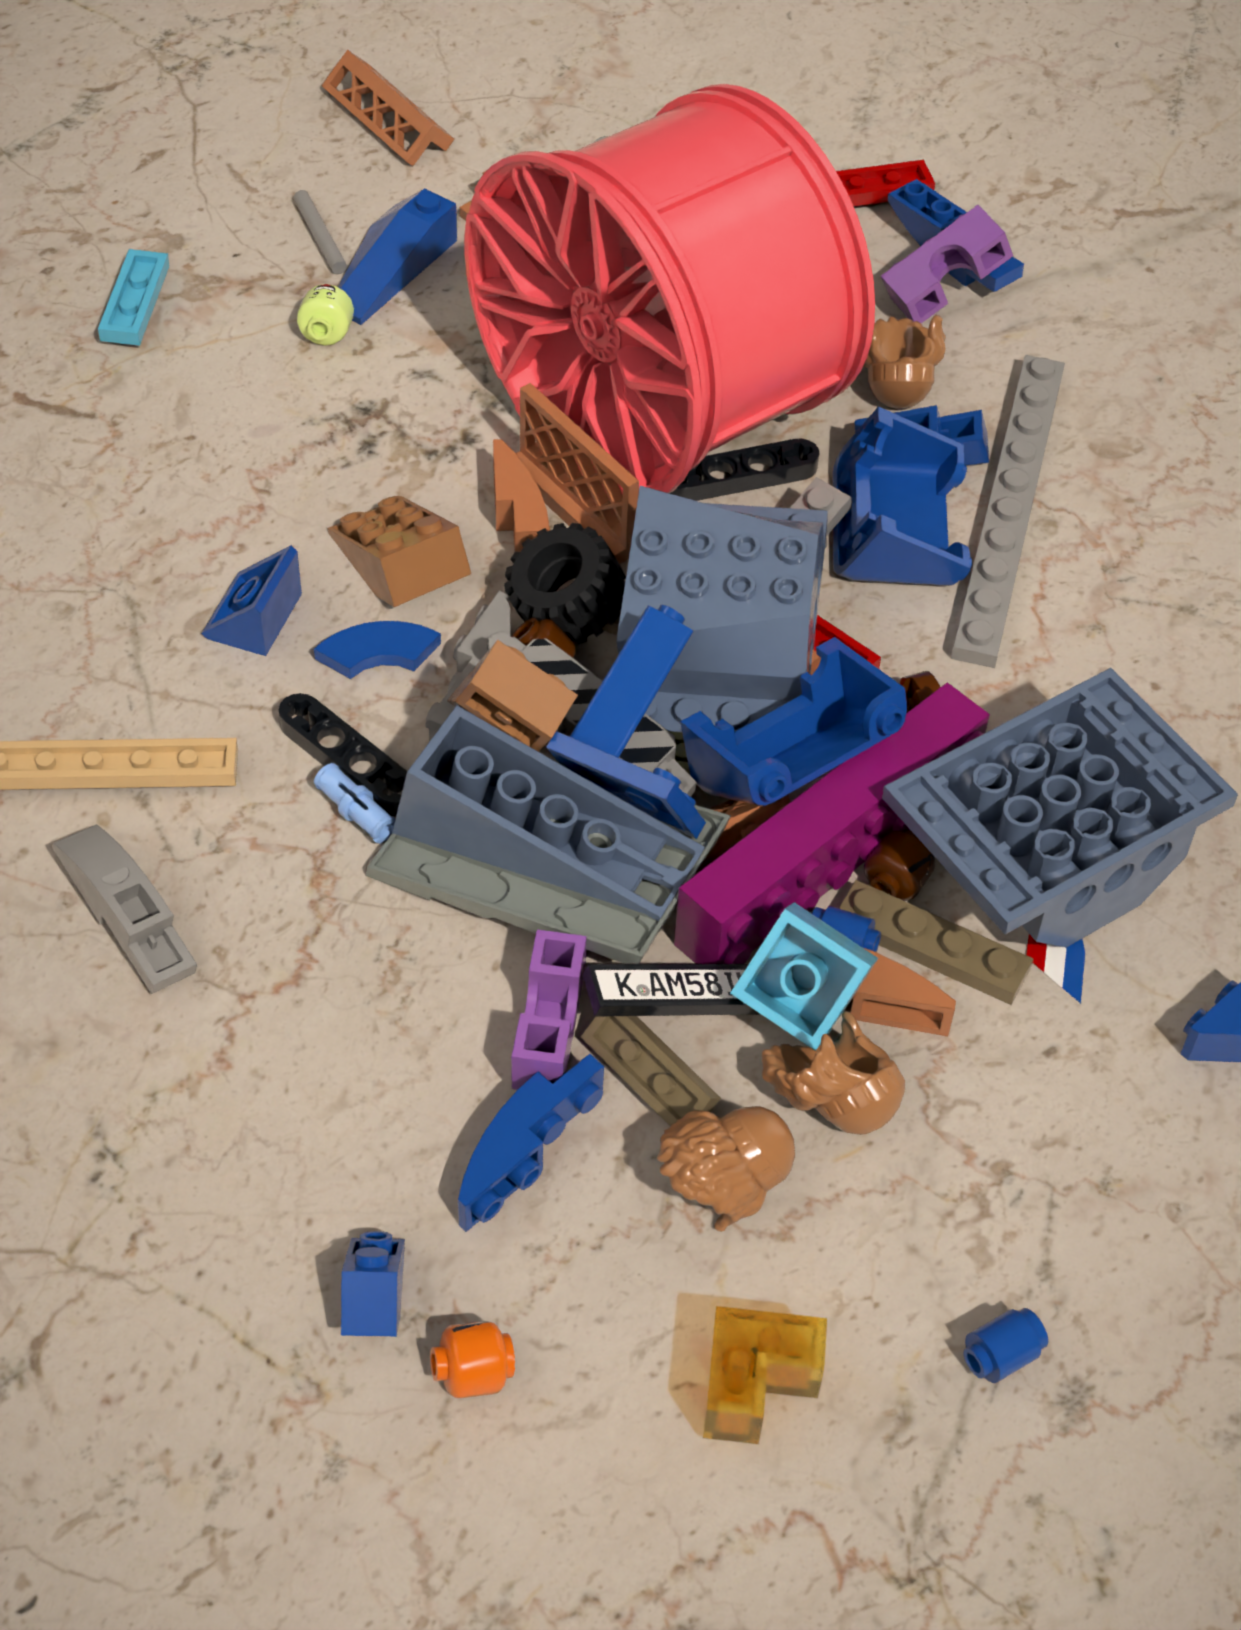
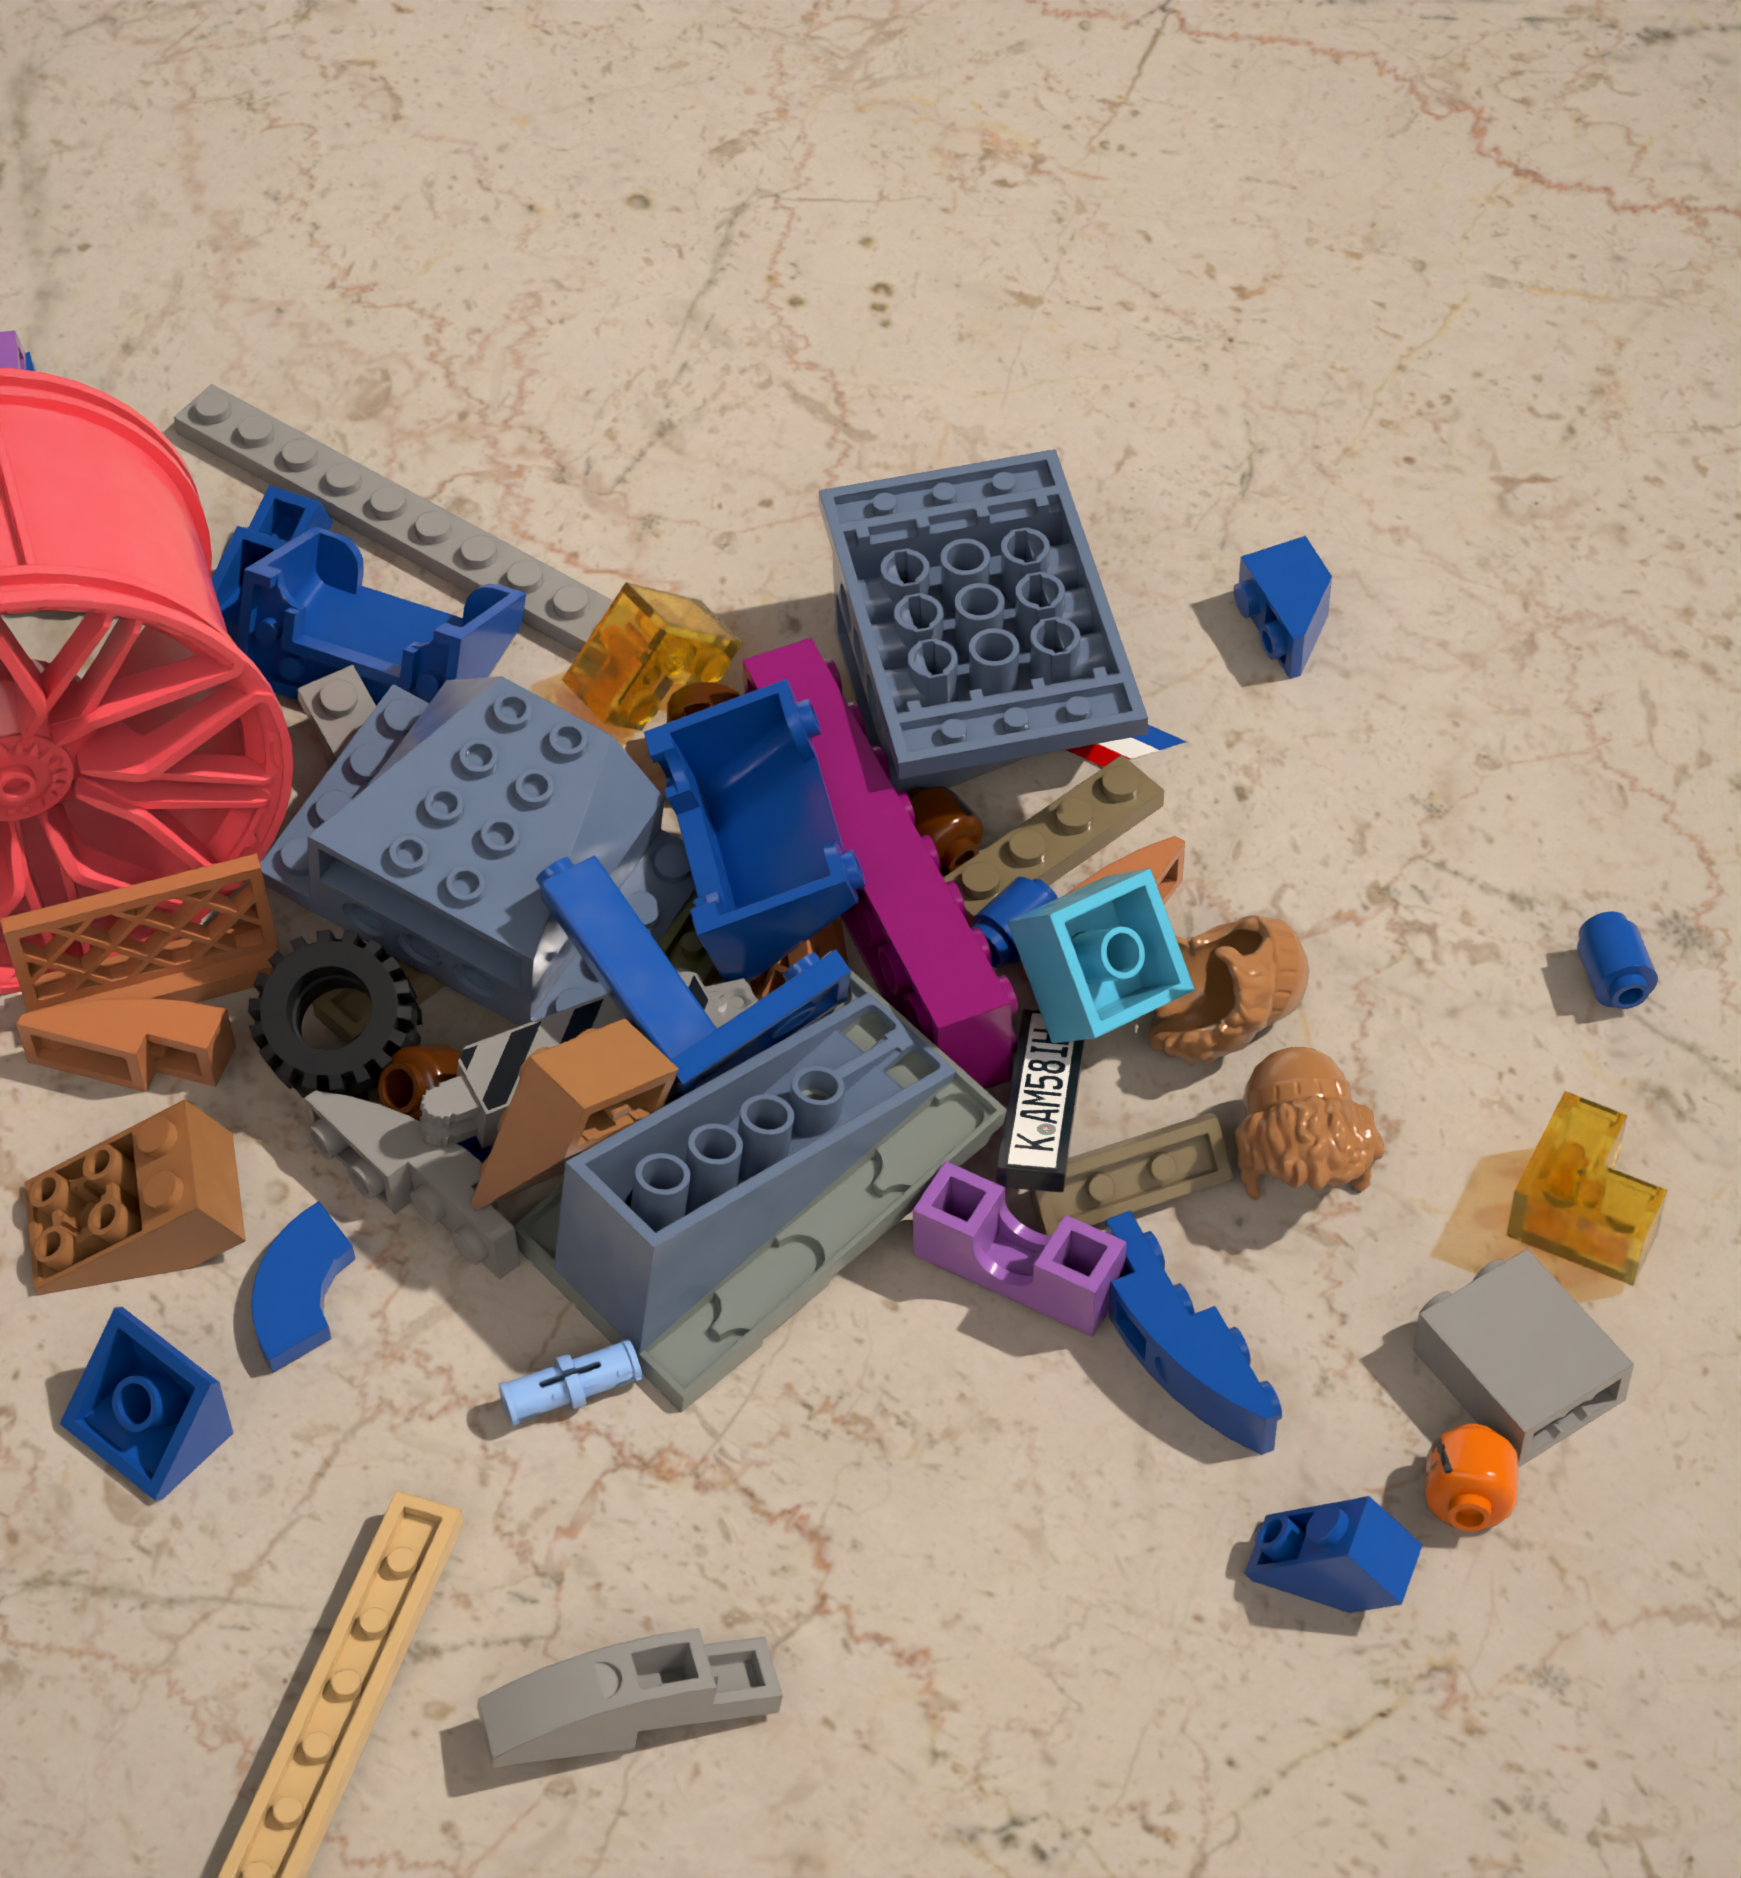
camera: 65 degrees left, 0 degrees up
(352, 750) = (468, 1362): black beam -> none
(595, 1367) = (1522, 1355): none -> light grey brick
(963, 646) = (643, 649): none -> clear yellow brick

